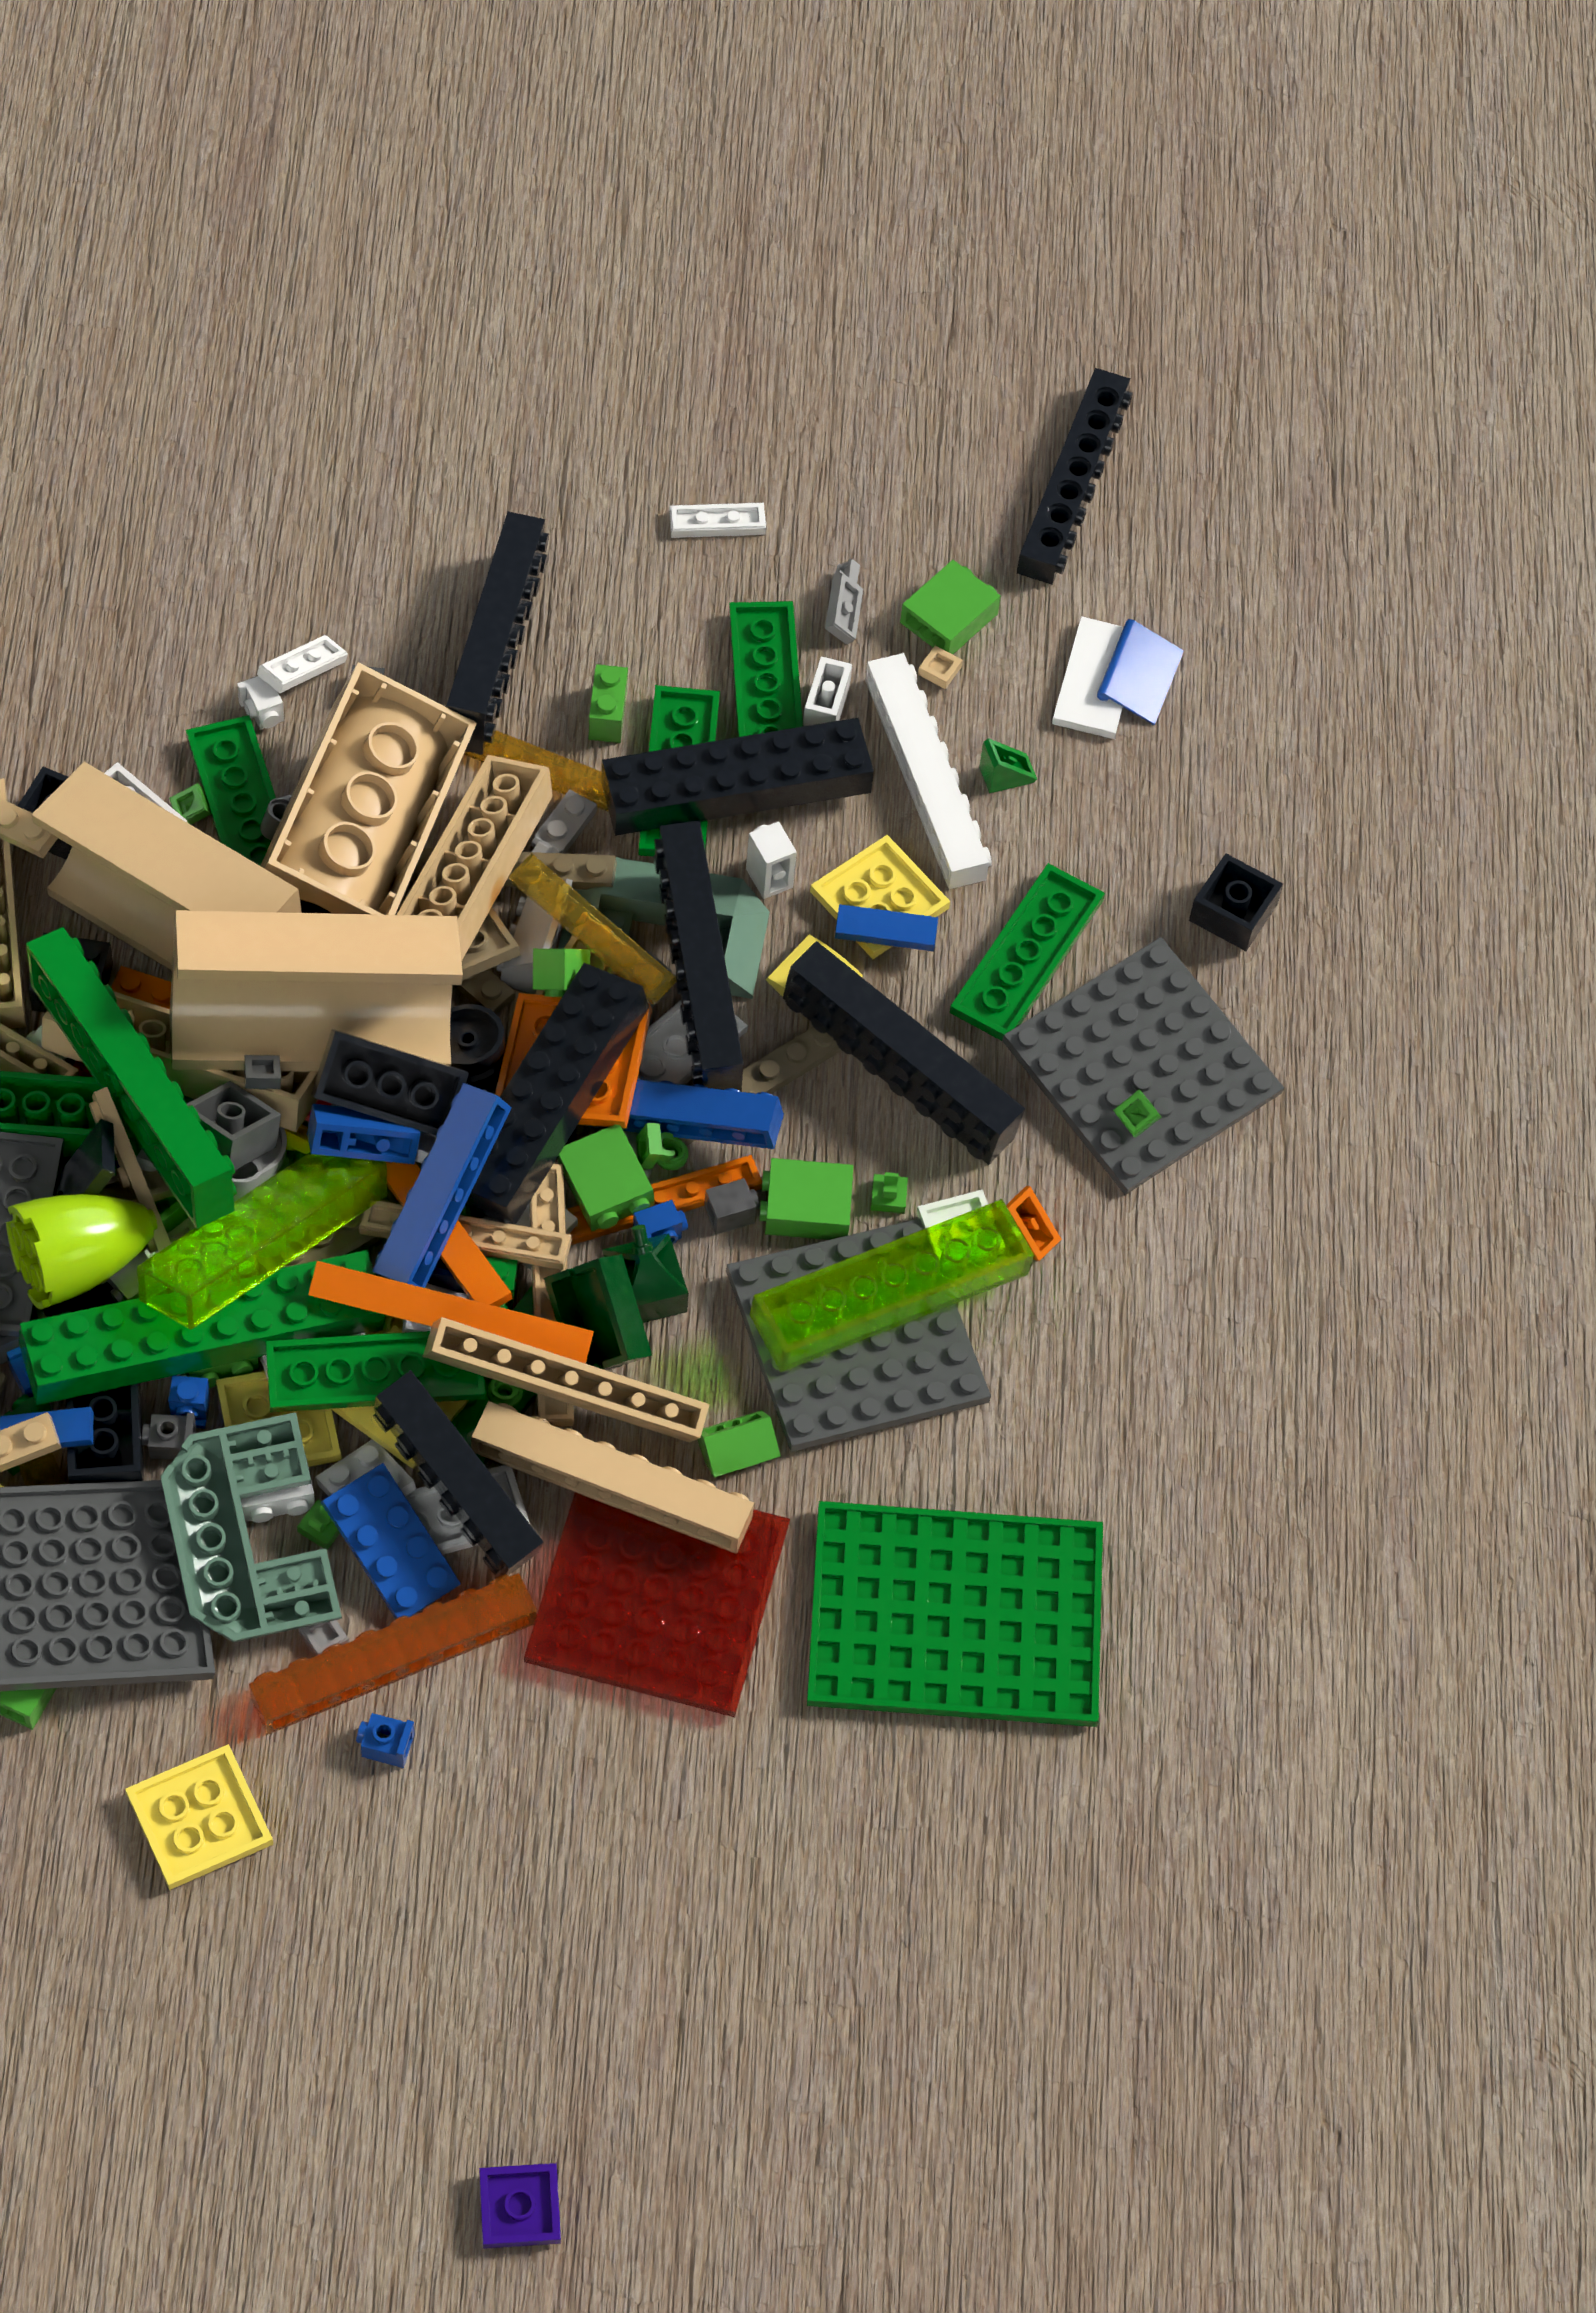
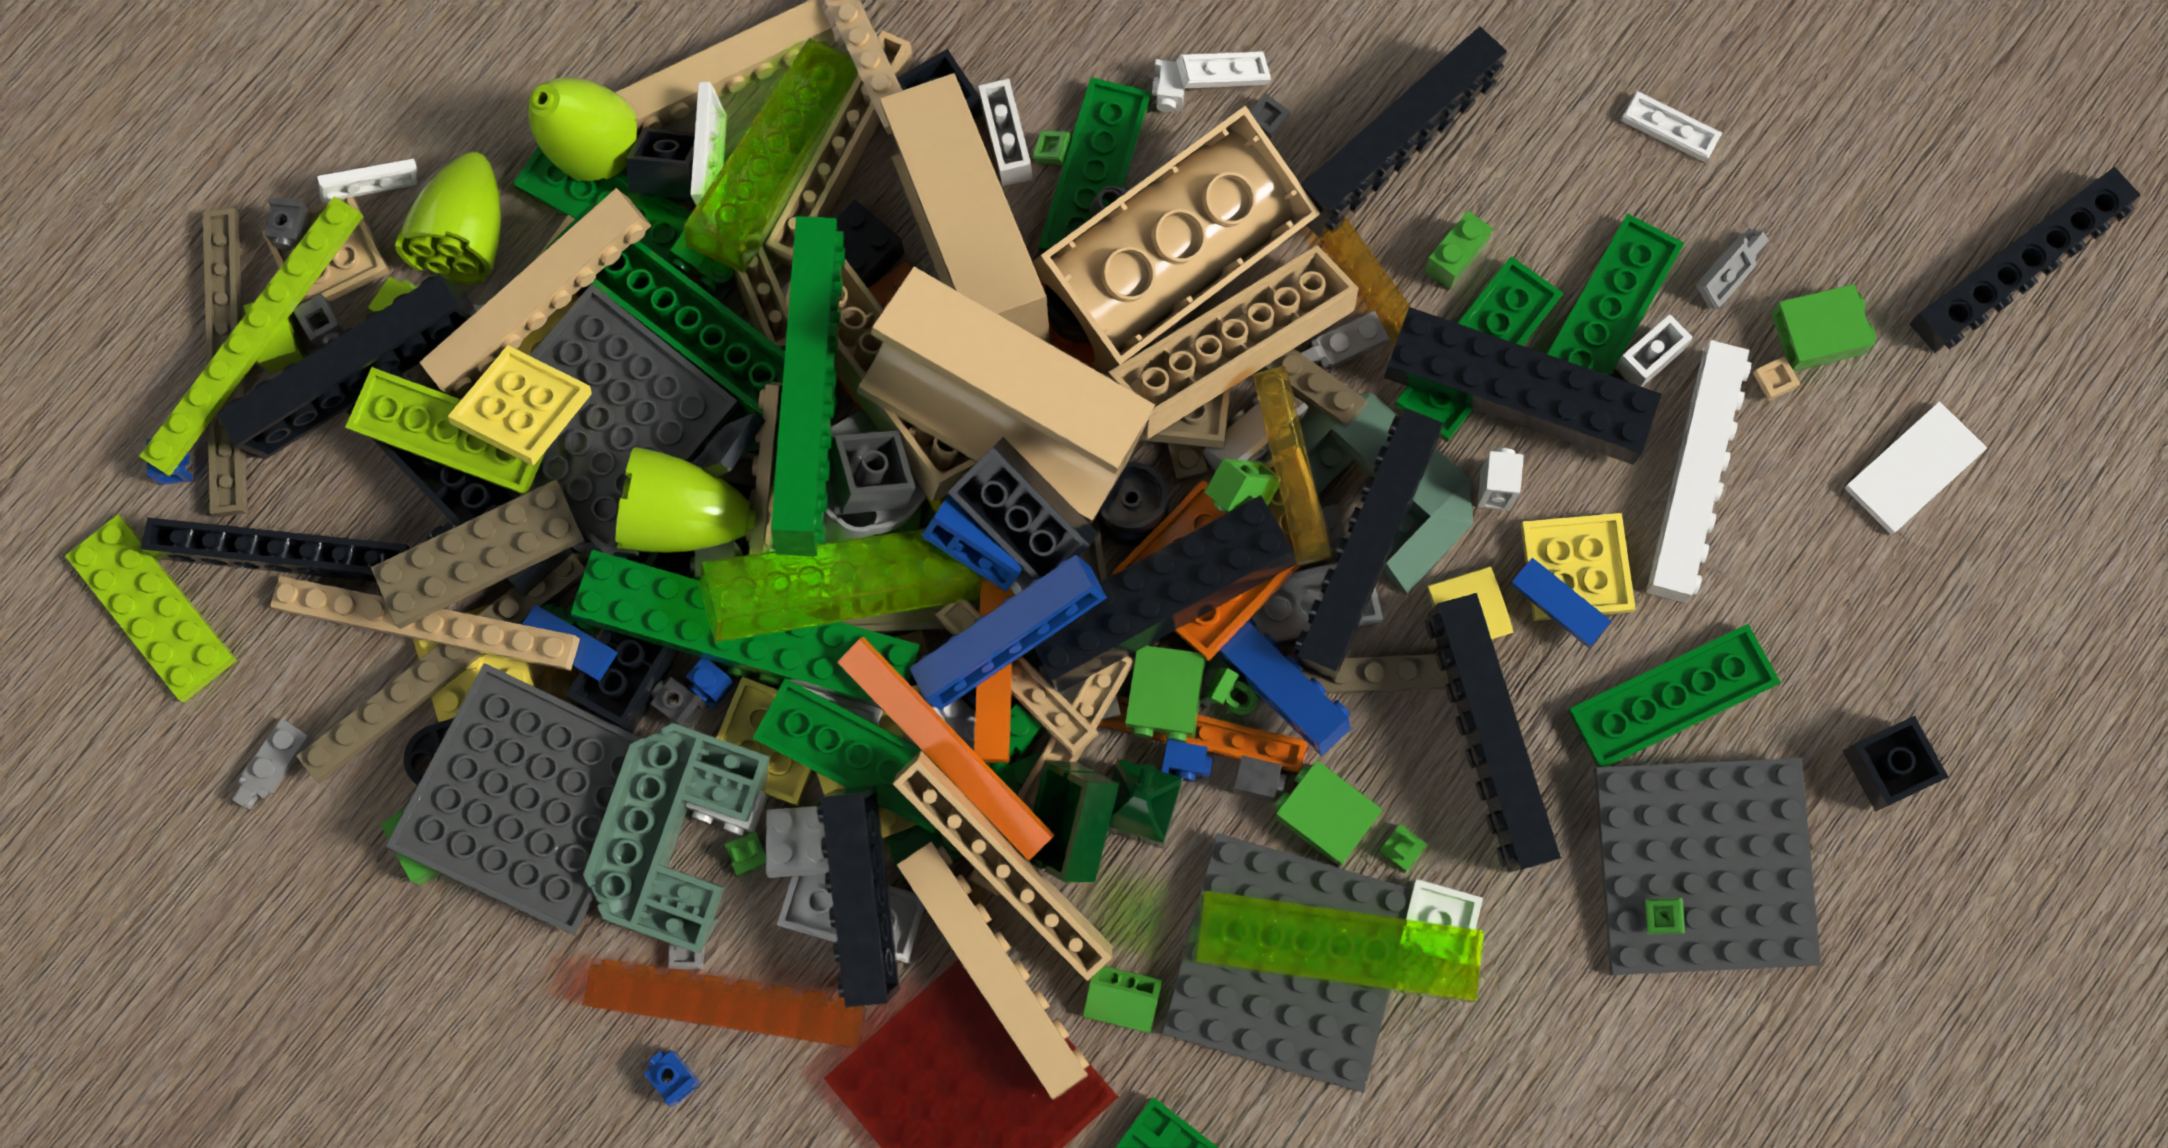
camera: 45 degrees right, 15 degrees up
(199, 1817) = (489, 1047): light yellow plate -> none
(262, 1071) = (924, 440): dark grey plate -> none
(390, 1542) = (781, 911): blue plate -> none
(1004, 767) = (1772, 508): green slope -> none
(1033, 1222) = (1503, 958): orange slope -> none
(1140, 671) = (1958, 485): piece -> none

